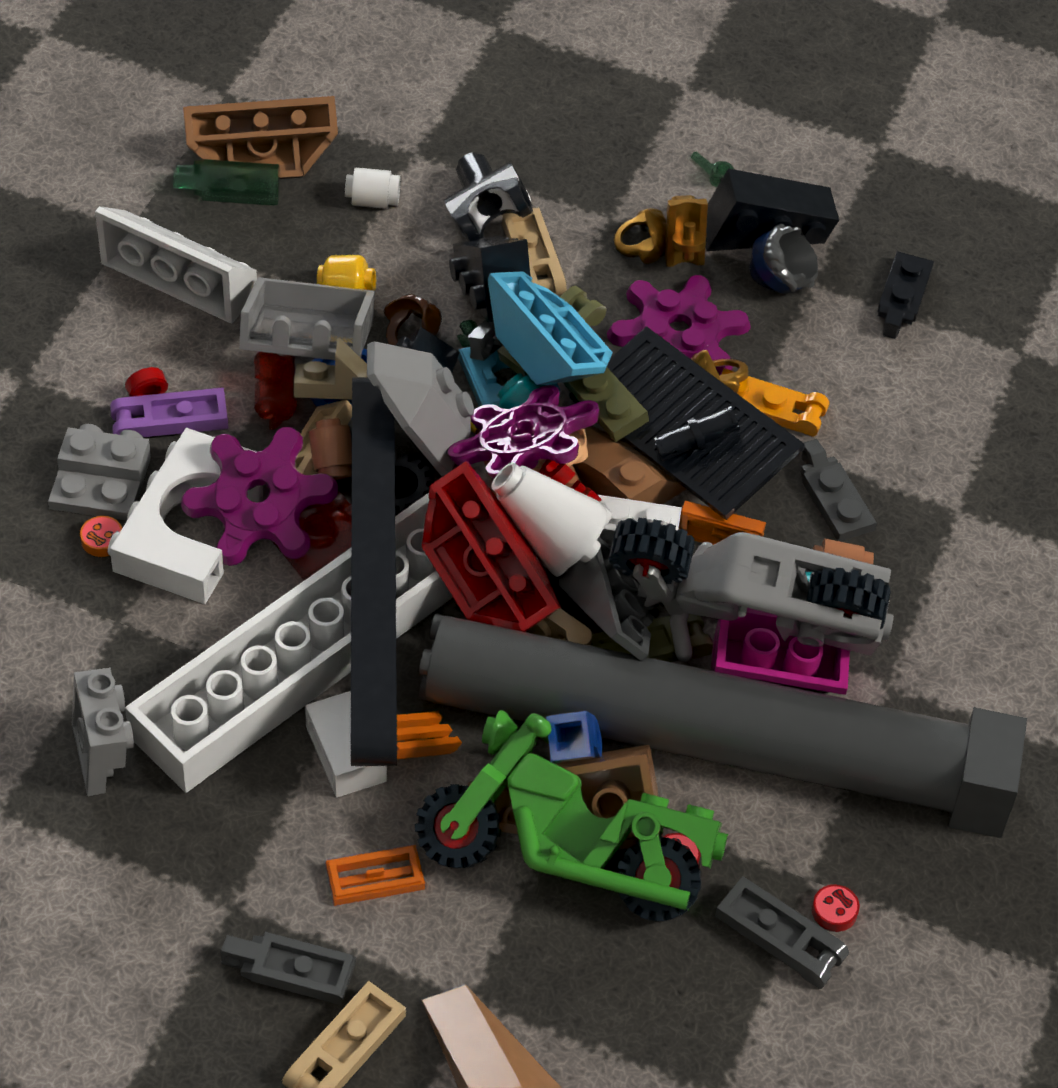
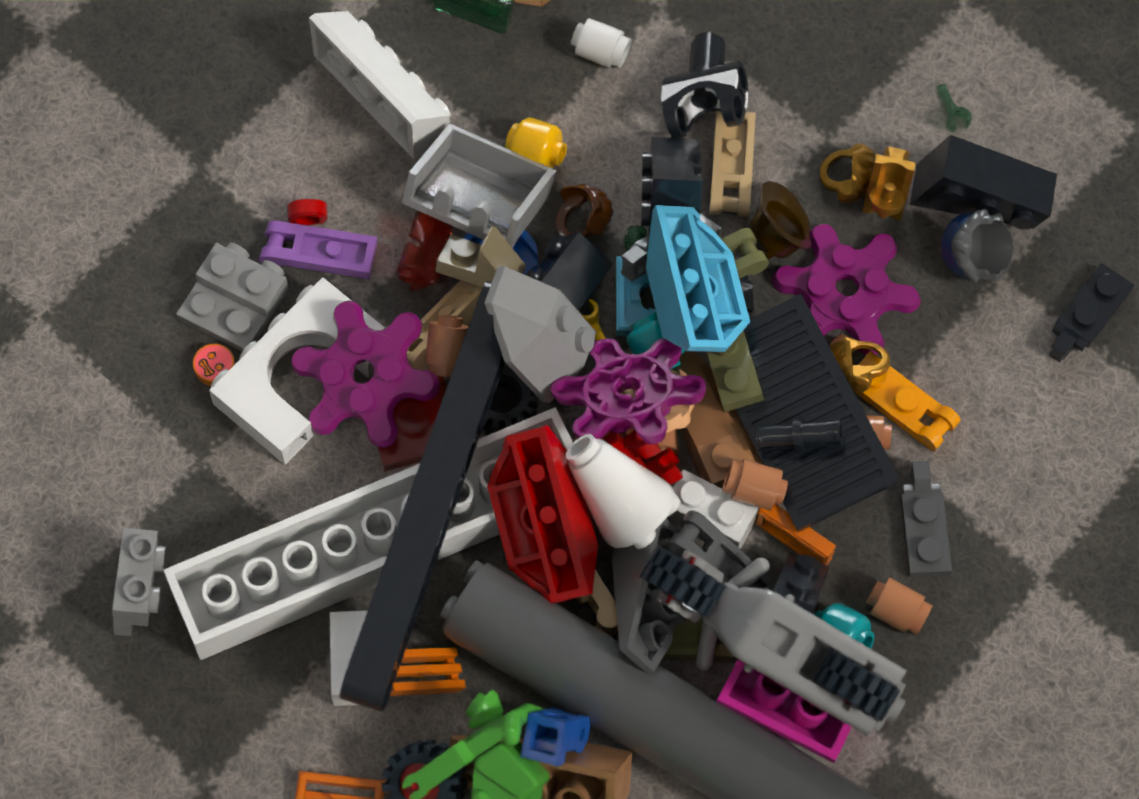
camera: 20 degrees right, 15 degrees up
(600, 286) = (780, 222): none -> dark brown piece
(672, 484) = (754, 484): none -> nougat brick

